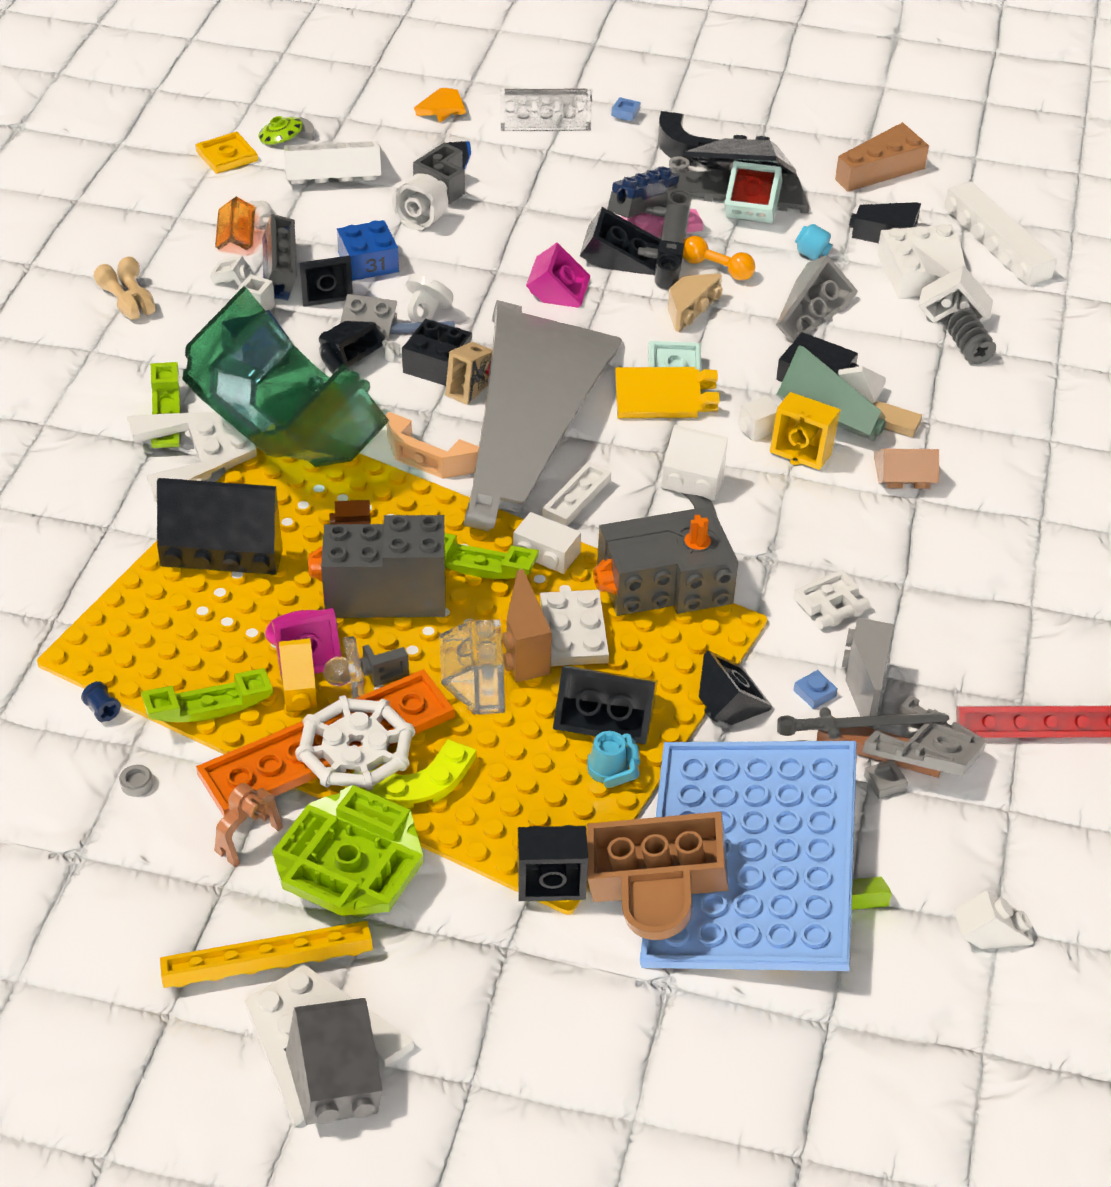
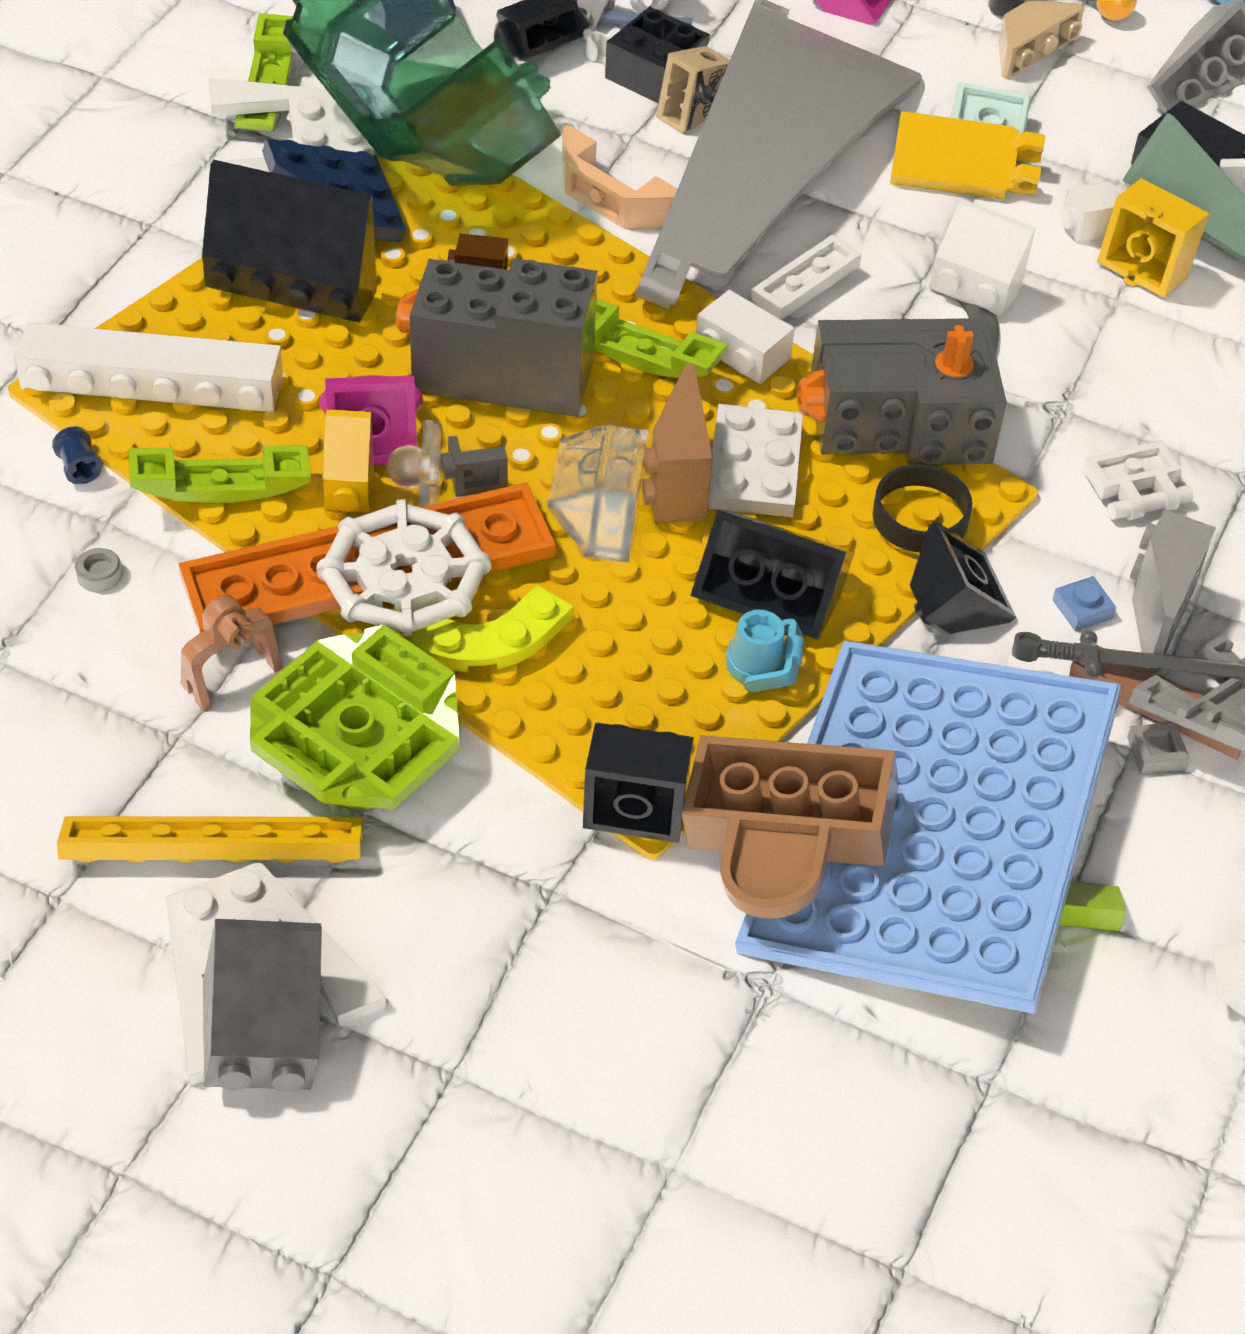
camera: 10 degrees right, 5 degrees up
(137, 630) = (149, 367): none -> white brick
(235, 468) = (340, 169): none -> dark blue plate
(691, 619) = (924, 476): none -> black tyre

